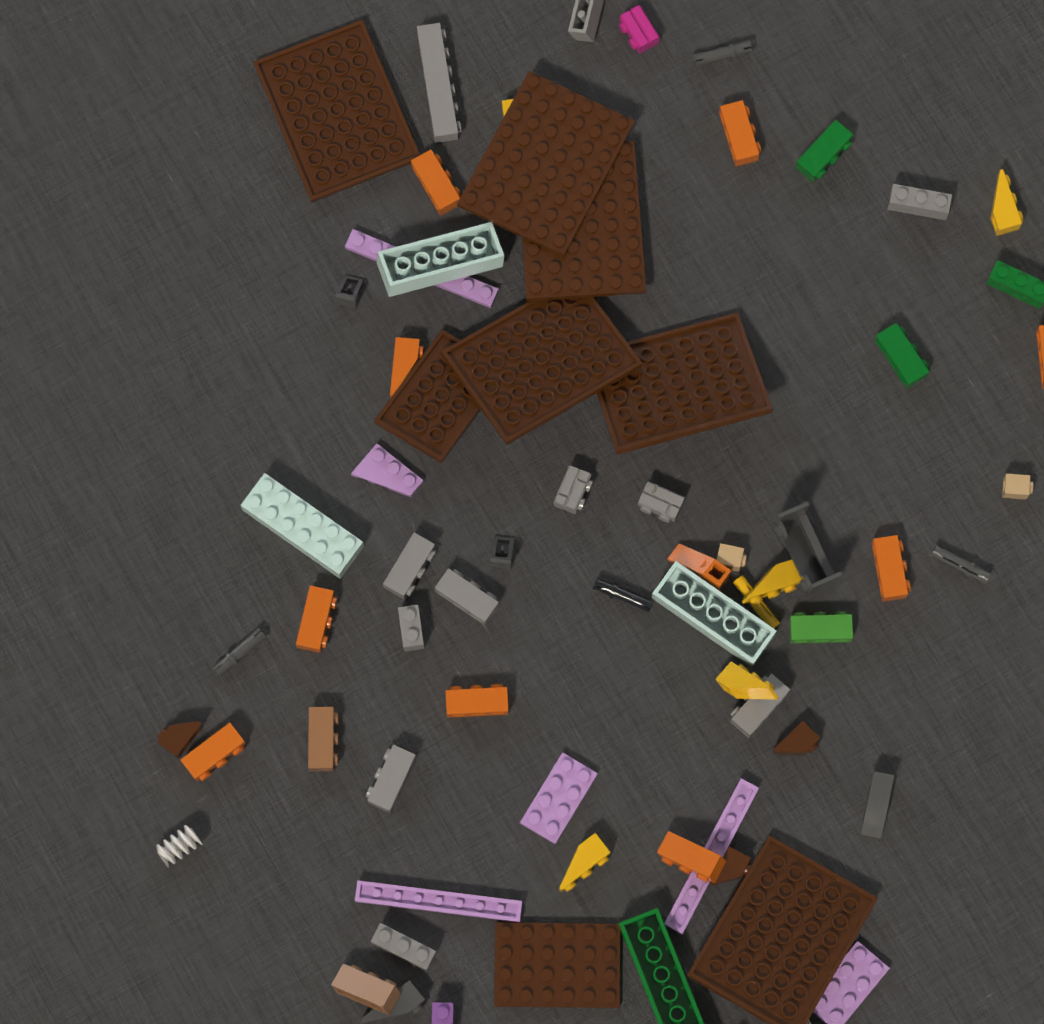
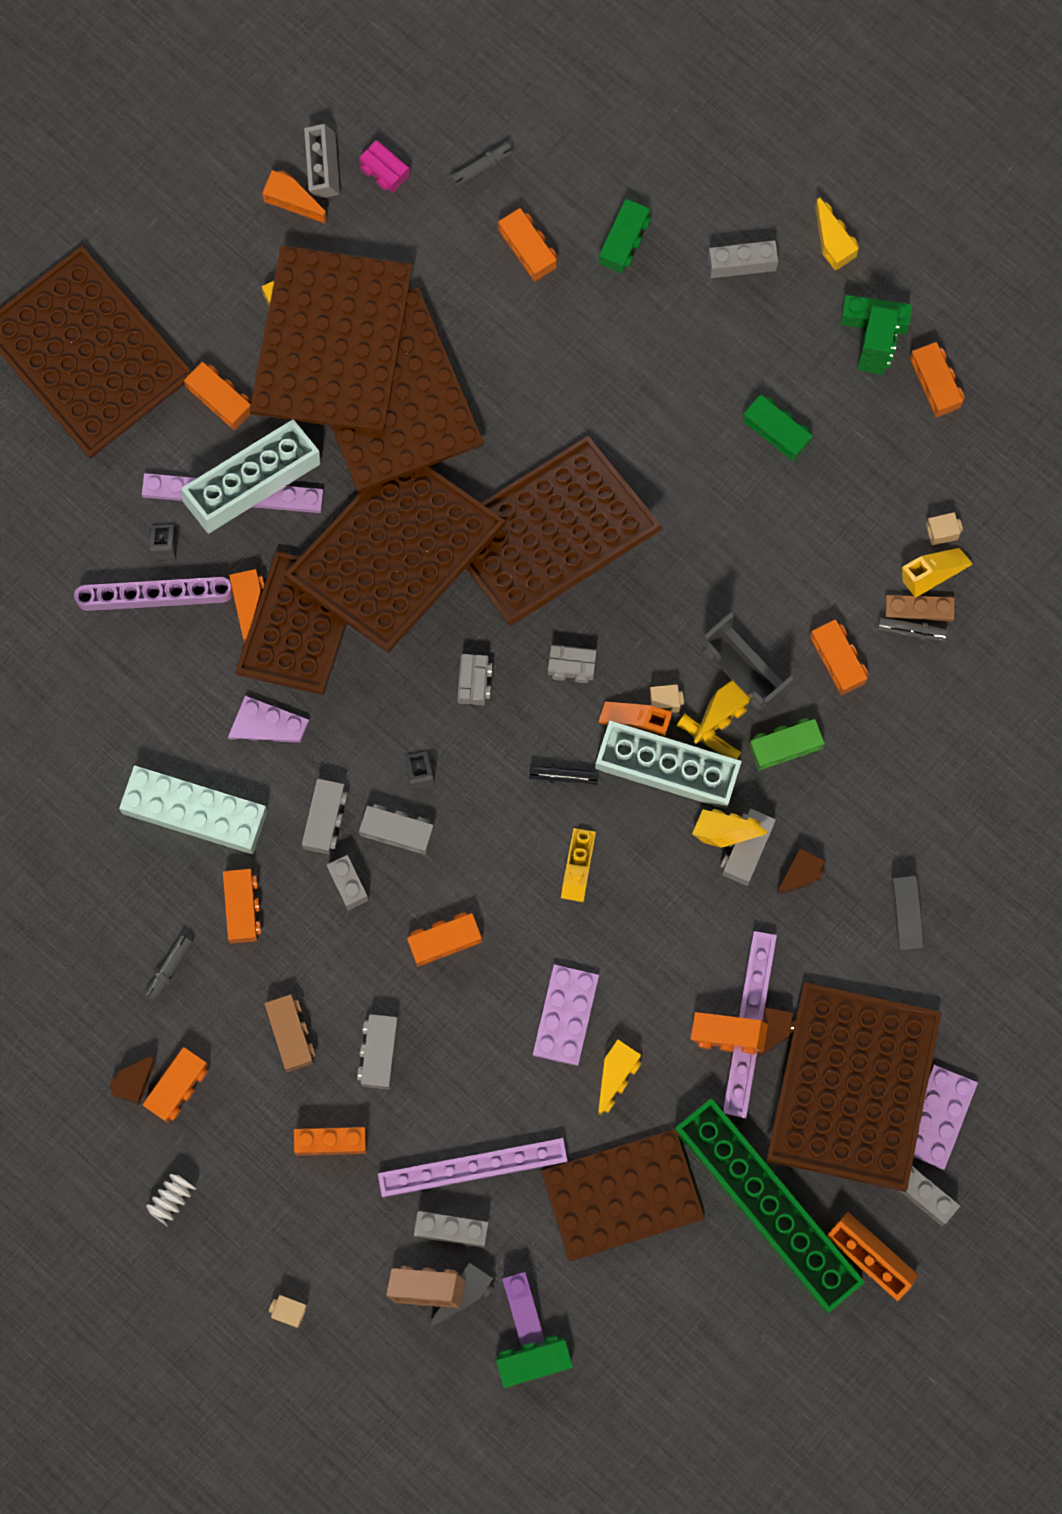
camera: 20 degrees left, 0 degrees up
(245, 971) = (288, 1311): none -> tan brick
(326, 840) = (330, 1141): none -> orange brick
(334, 340) = (144, 588): none -> lavender beam
(437, 82) = (186, 289): light grey brick -> none
(548, 27) = (286, 193): none -> orange slope
(610, 674) = (578, 865): none -> yellow slope
(973, 548) = (919, 608): none -> medium nougat plate
(996, 518) = (933, 569): none -> yellow slope
(1012, 308) = (879, 340): none -> green brick

